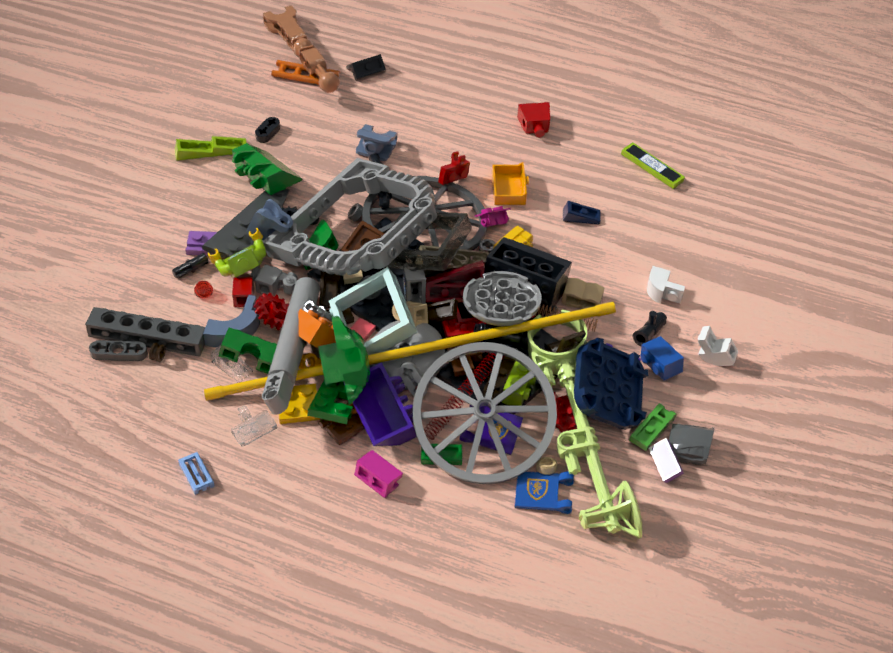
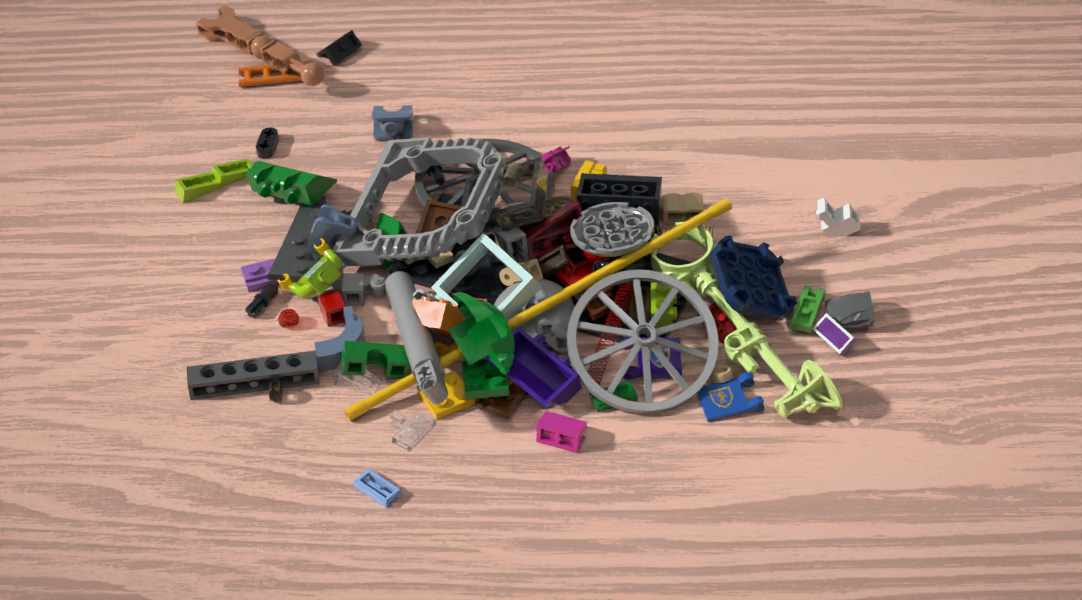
camera: 15 degrees left, 5 degrees down
(104, 345) = (238, 395): dark grey beam -> none
(271, 310) = (376, 315): red gear -> none
(329, 288) = (422, 275): dark brown tile -> none
(355, 212) = (408, 197): dark grey tile -> none
(436, 223) = (513, 174): none -> dark tan piece
(455, 171) = (494, 125): red plate -> none
(486, 243) = (561, 190): flat silver bush -> none
(509, 184) = (555, 124): light orange container -> none
(534, 118) = (548, 50): red torso -> none
(567, 343) = (698, 251): dark brown door -> none
(580, 213) = (641, 132): dark blue slope -> none
(650, 328) = (764, 219): black piece -> none
(653, 165) = (693, 63): tile -> none
(660, 288) = (755, 179): white brick -> none
(662, 358) = (789, 243): blue brick -> none

